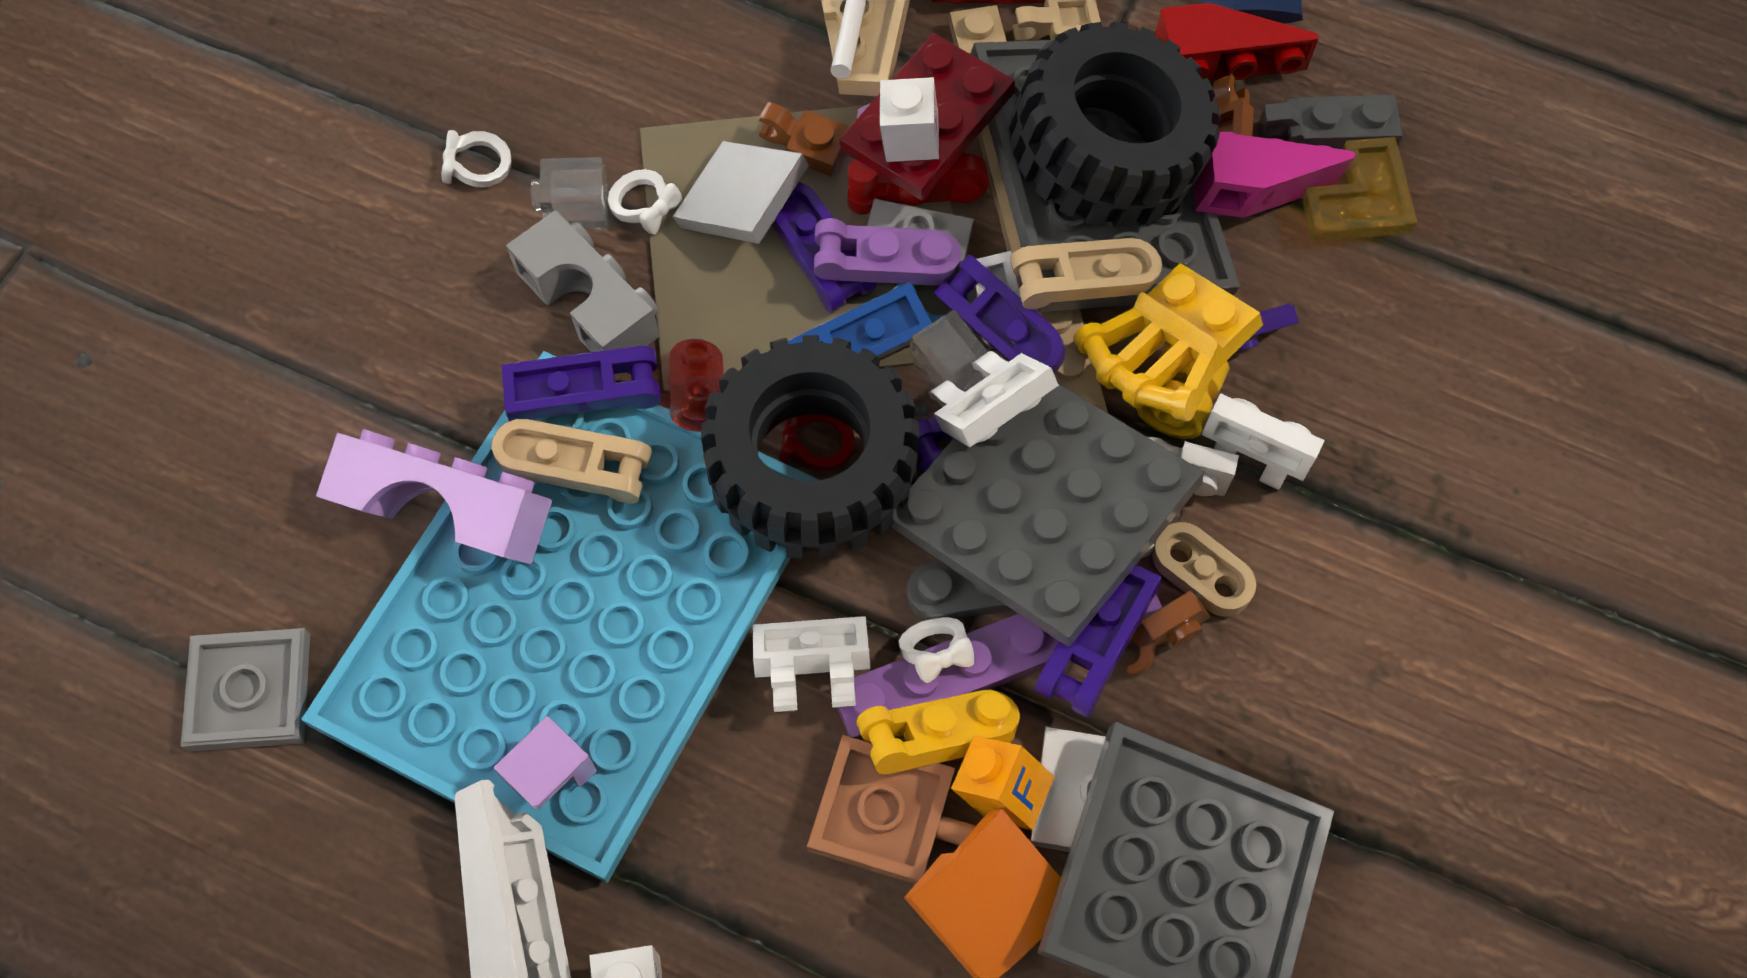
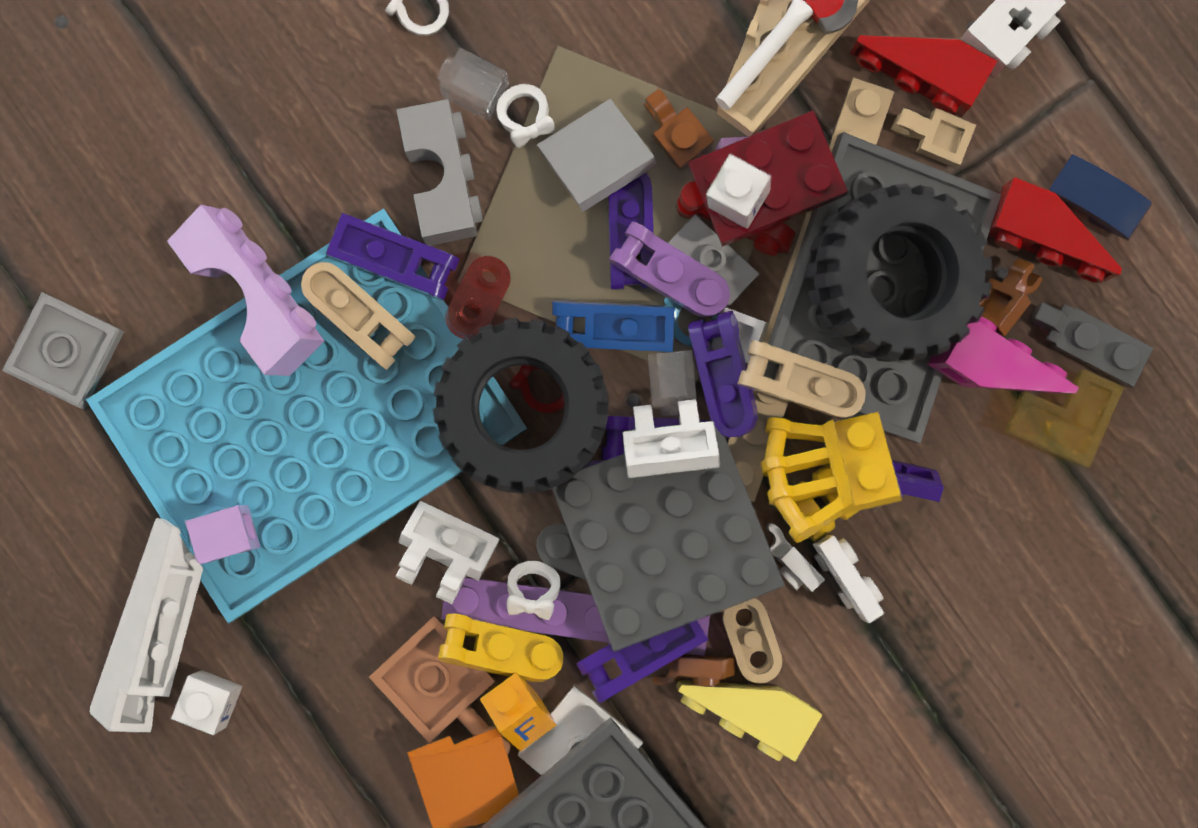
camera: 30 degrees right, 20 degrees up
(1272, 635) = (763, 711): none -> light yellow slope

